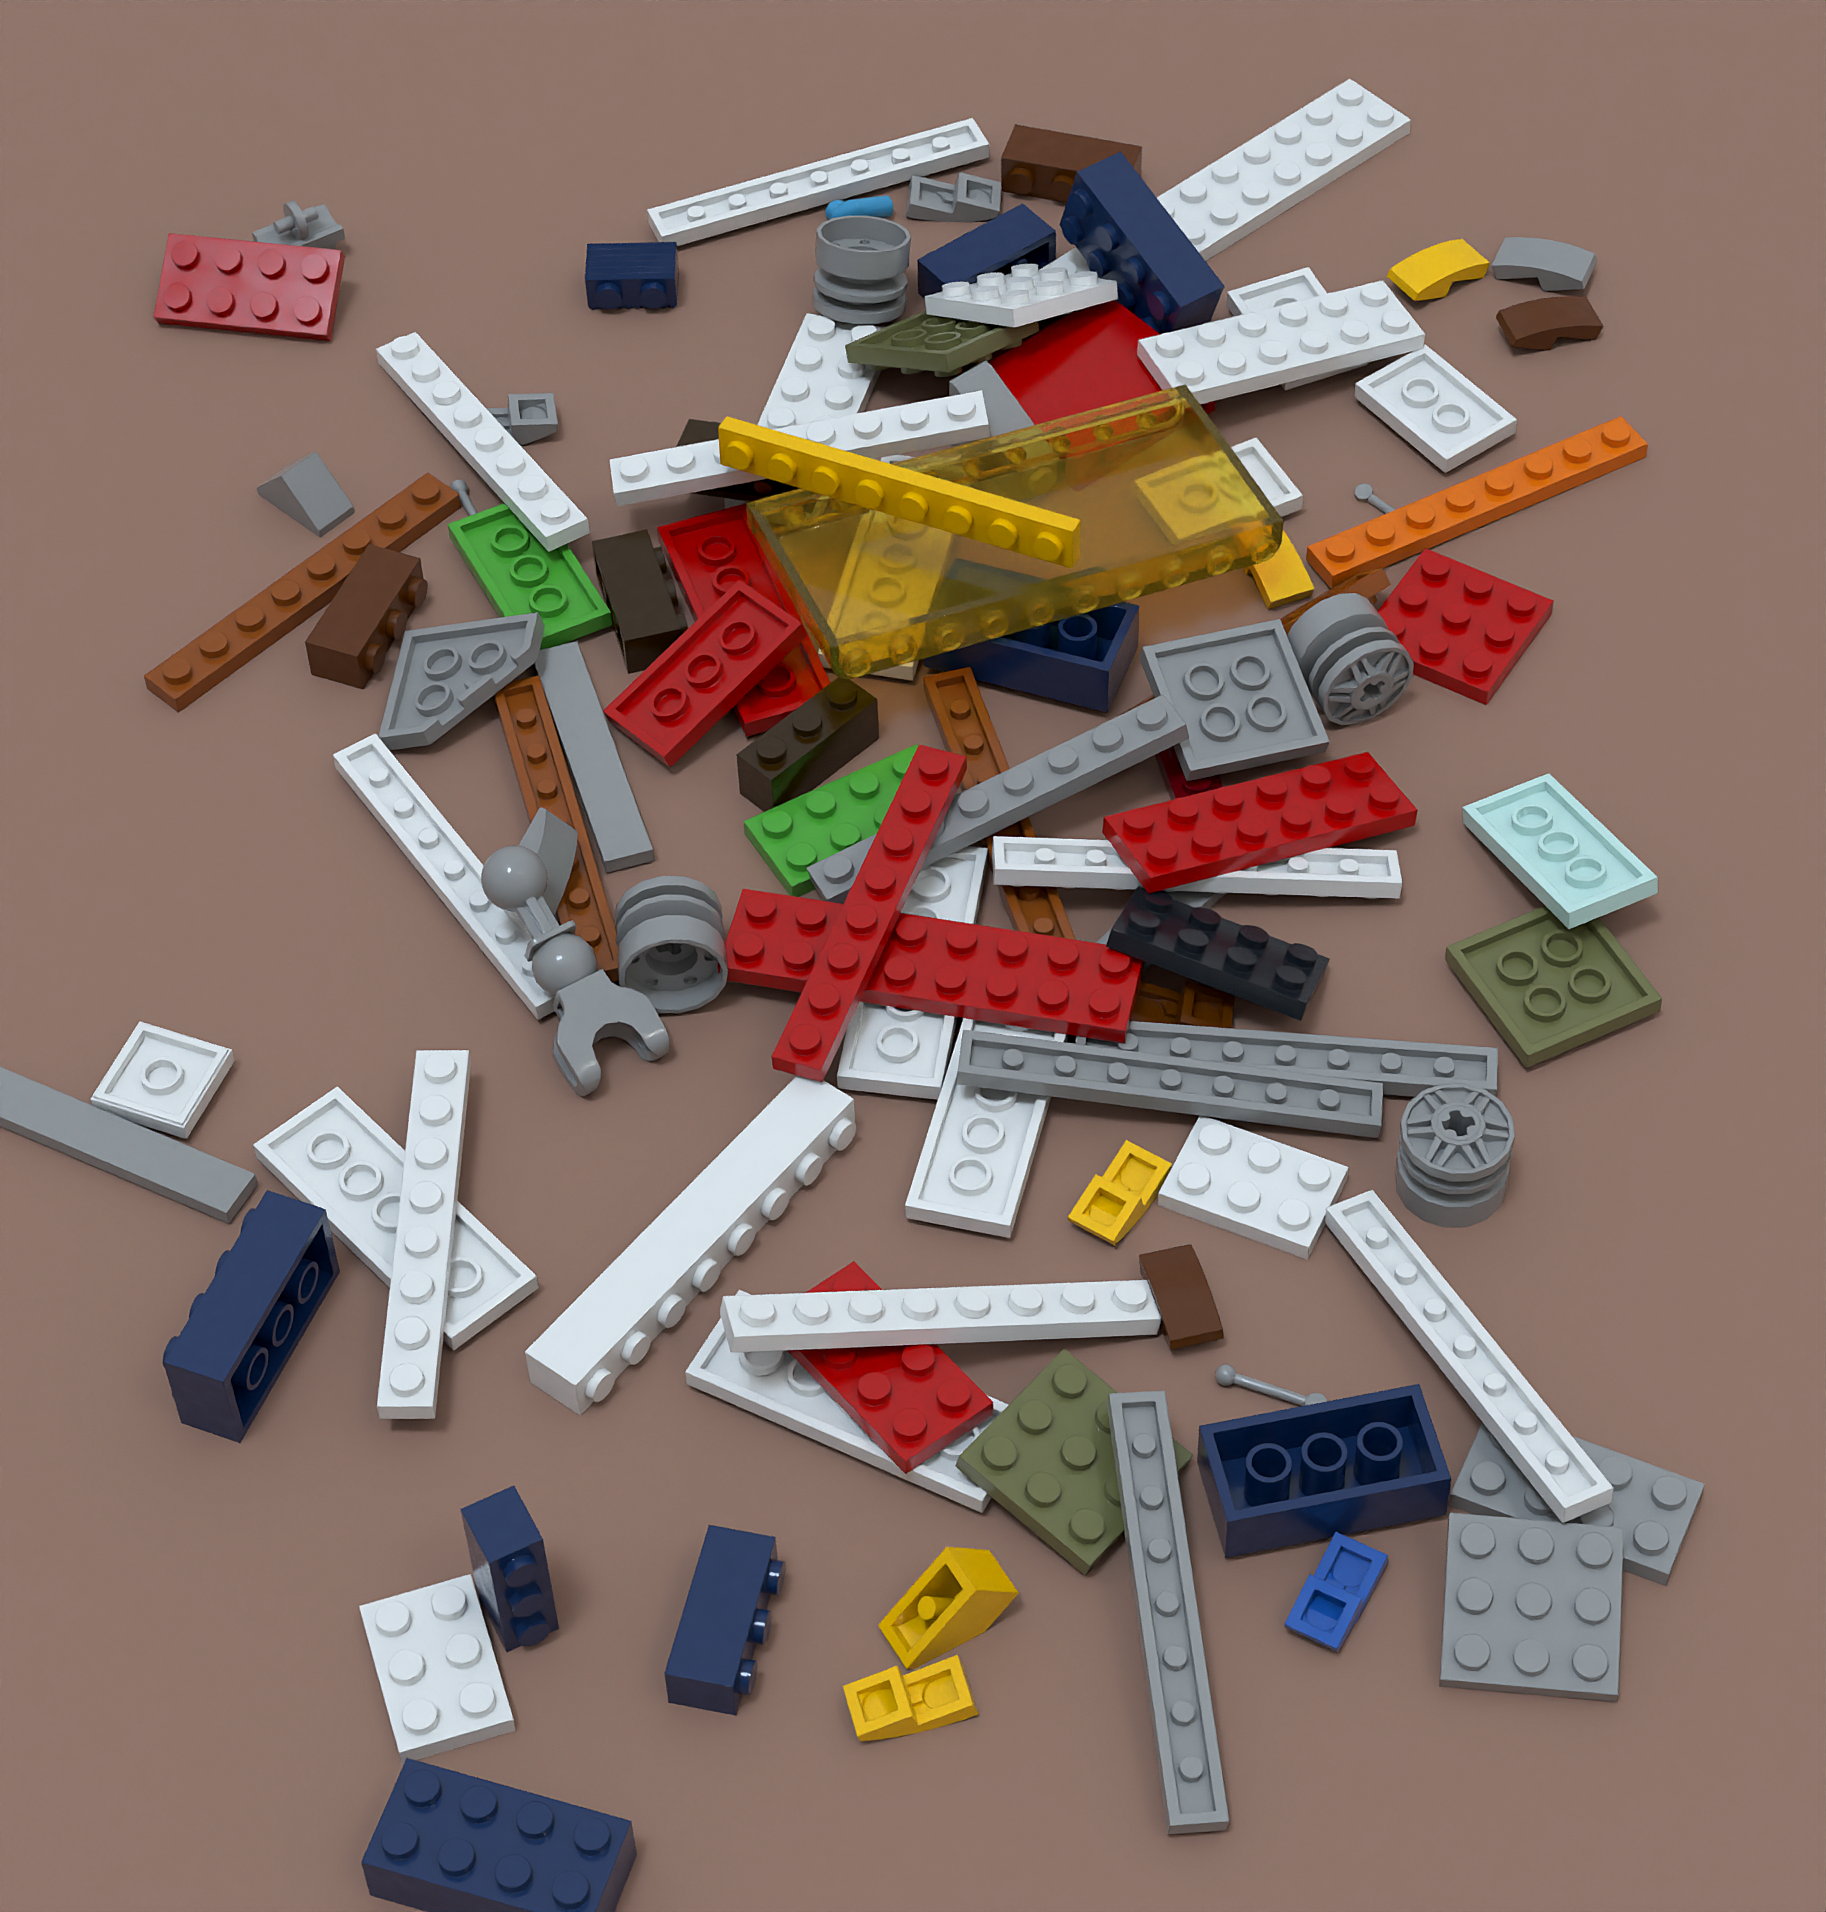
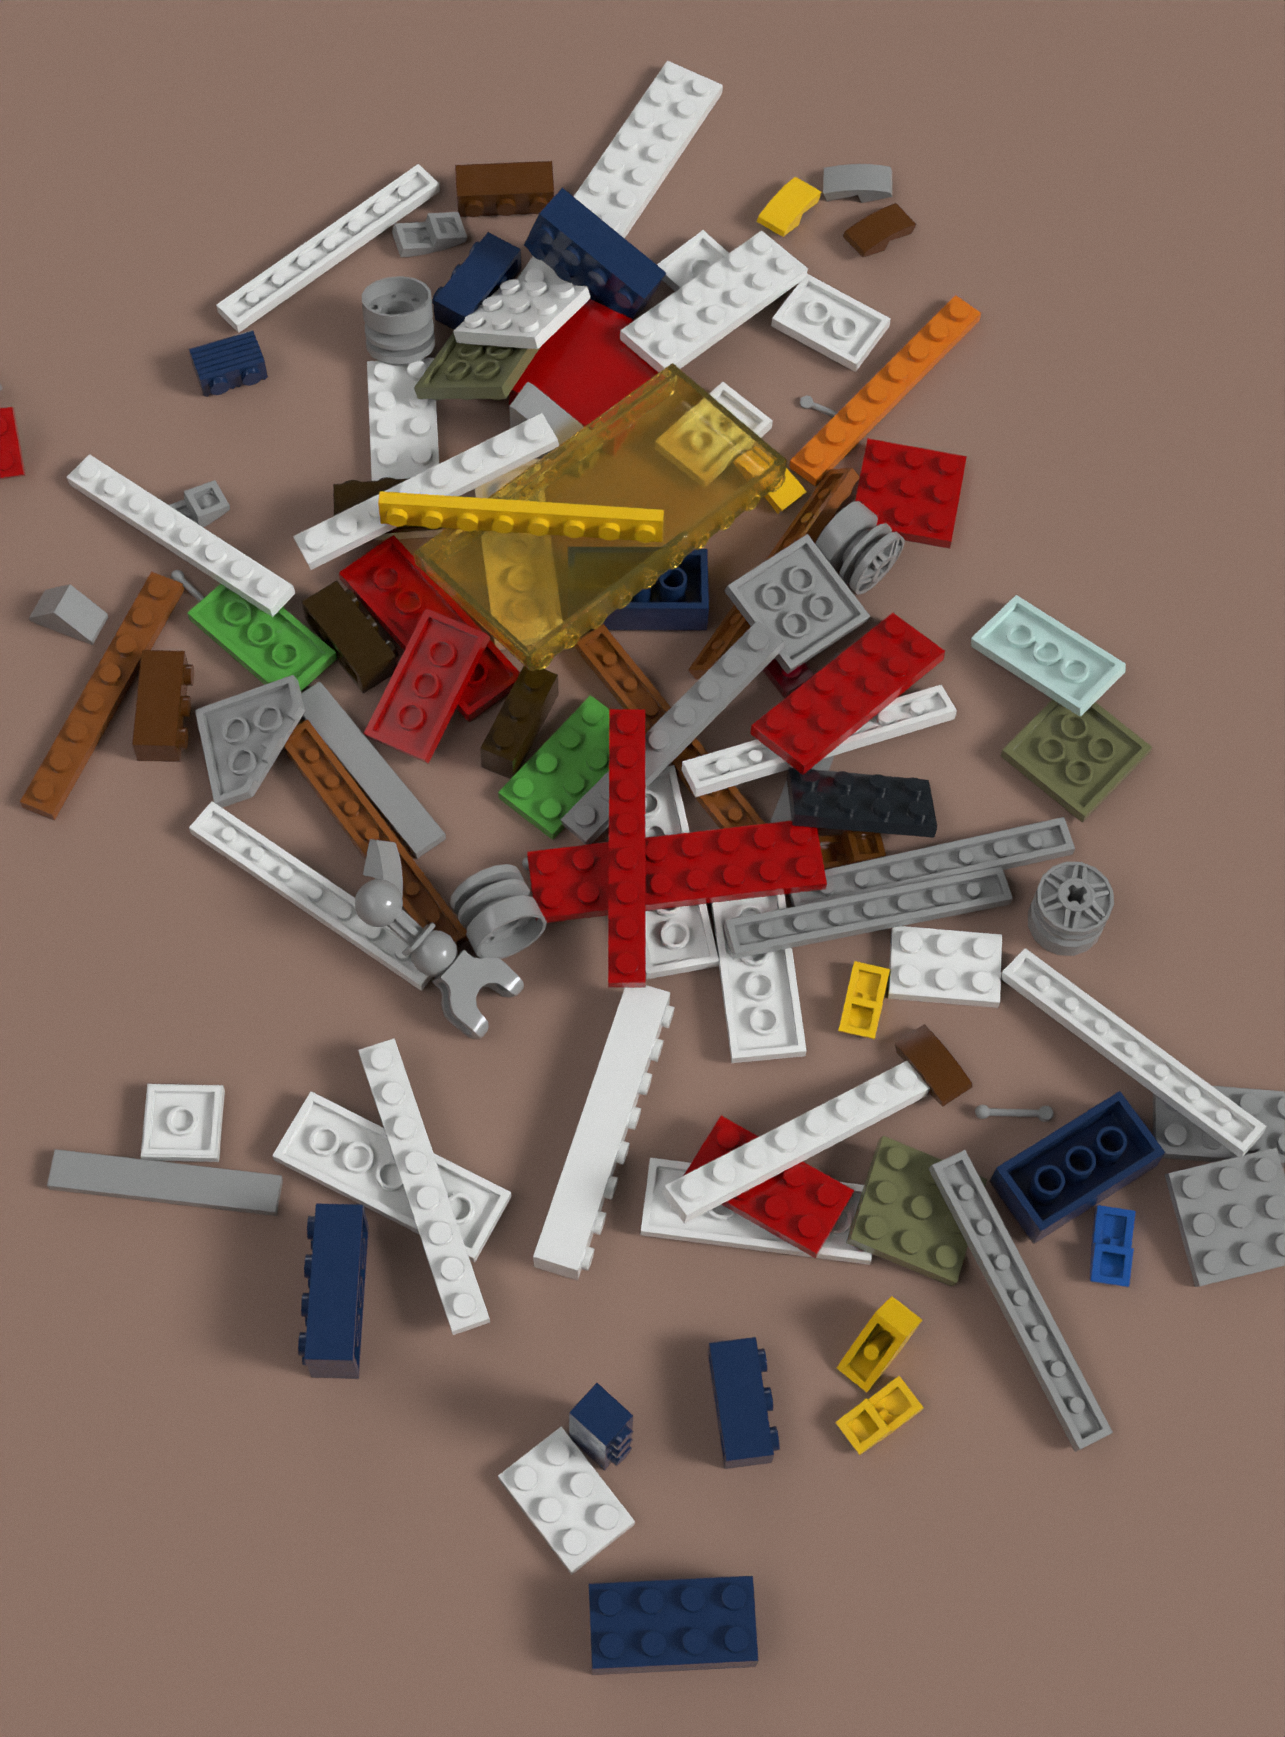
camera: 25 degrees left, 15 degrees up
(872, 206) = (359, 269): dark azure arm -> none

